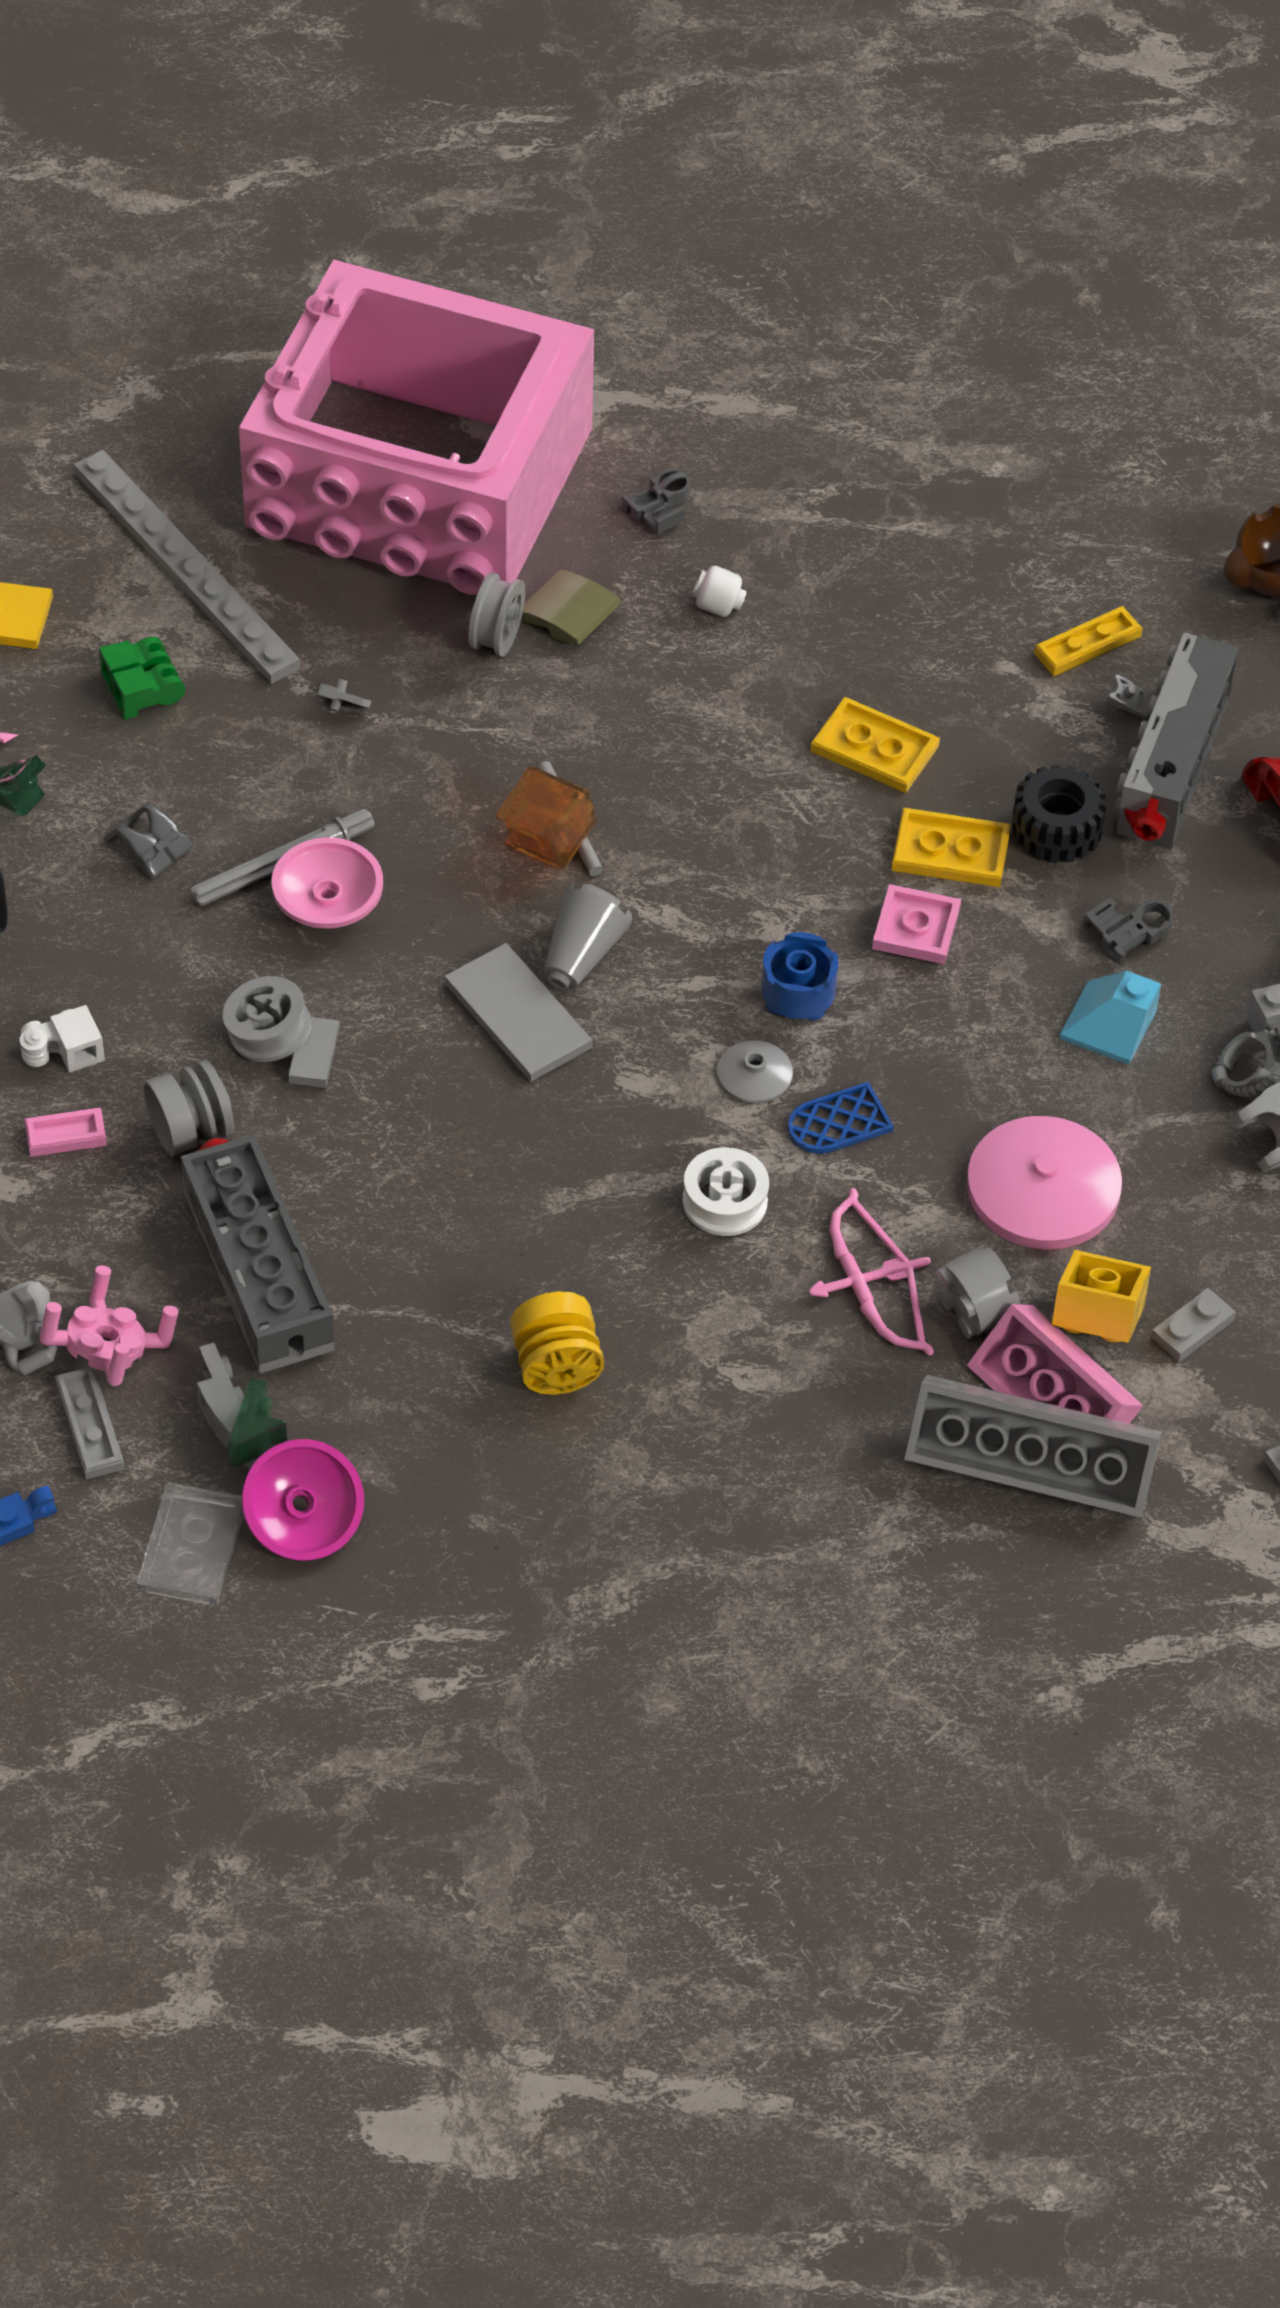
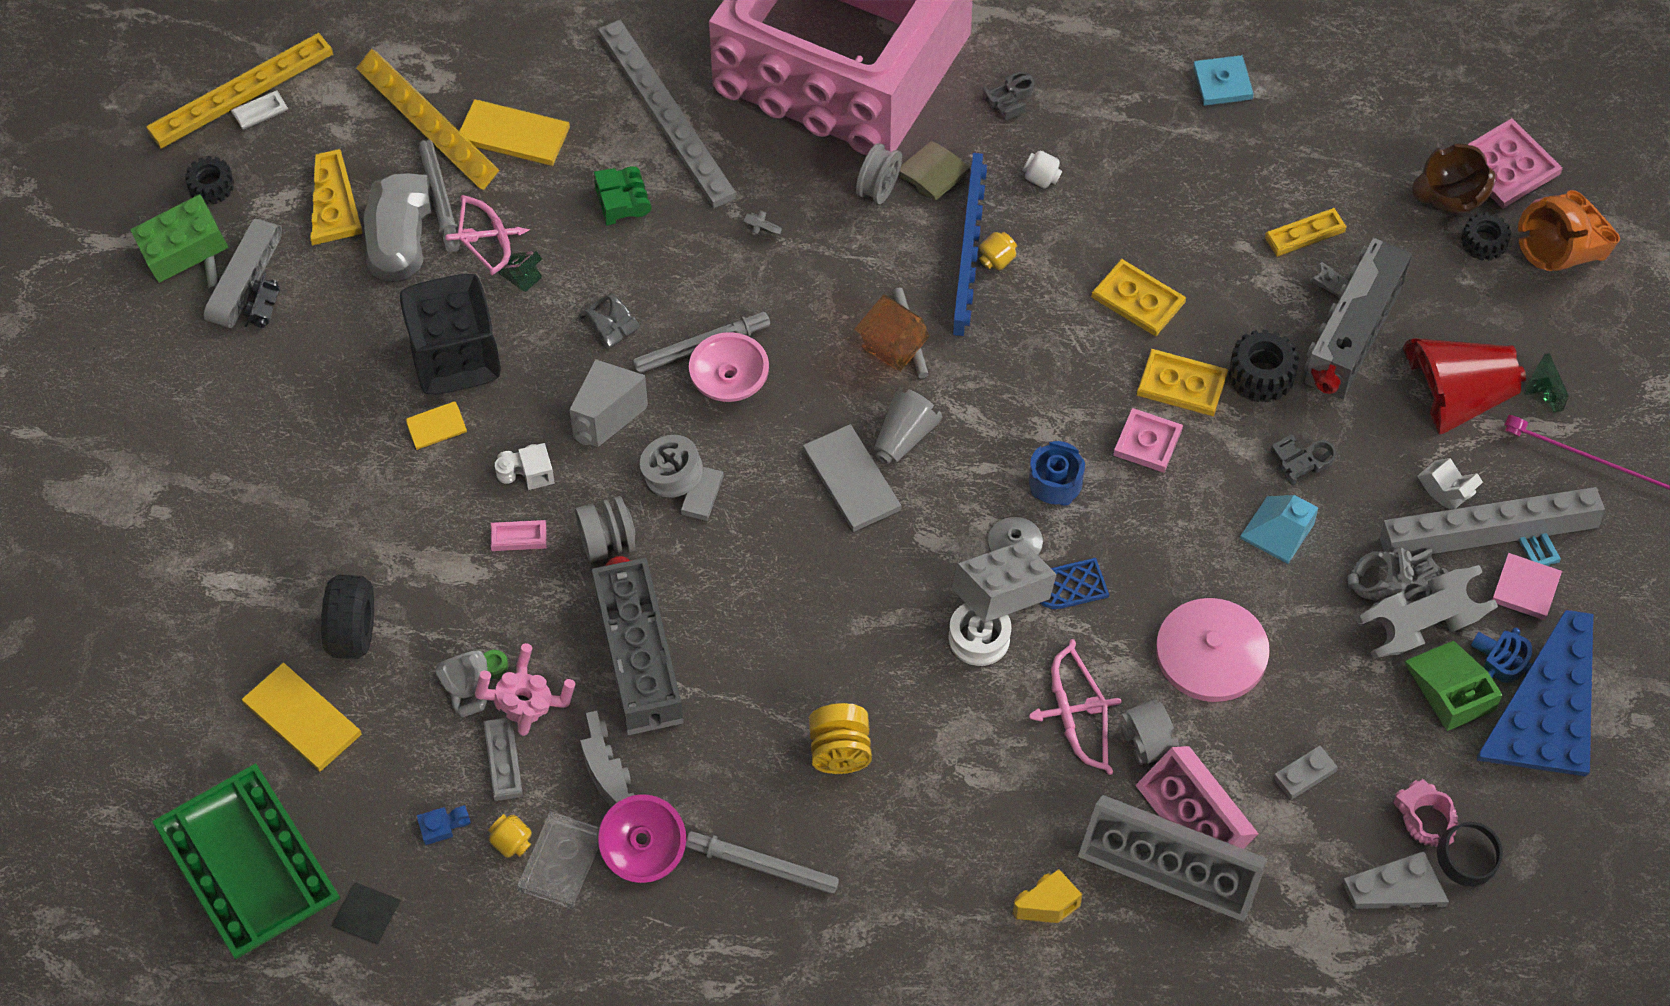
camera: 10 degrees right, 5 degrees up
(65, 1296) = (496, 663): none -> bright green tile
(116, 1519) = (510, 836): none -> yellow head
(165, 944) = (606, 403): none -> light grey slope
(254, 1428) = (612, 783): clear green slope -> none
(471, 1516) = (761, 862): none -> light grey axle
(635, 707) = (969, 251): none -> blue plate
(674, 701) = (997, 251): none -> yellow head
(750, 1118) = (1003, 581): none -> light grey brick
(873, 1522) = (1049, 901): none -> yellow slope
(947, 457) = (1223, 80): none -> medium azure plate
(1101, 1296) = (1239, 746): yellow brick -> none

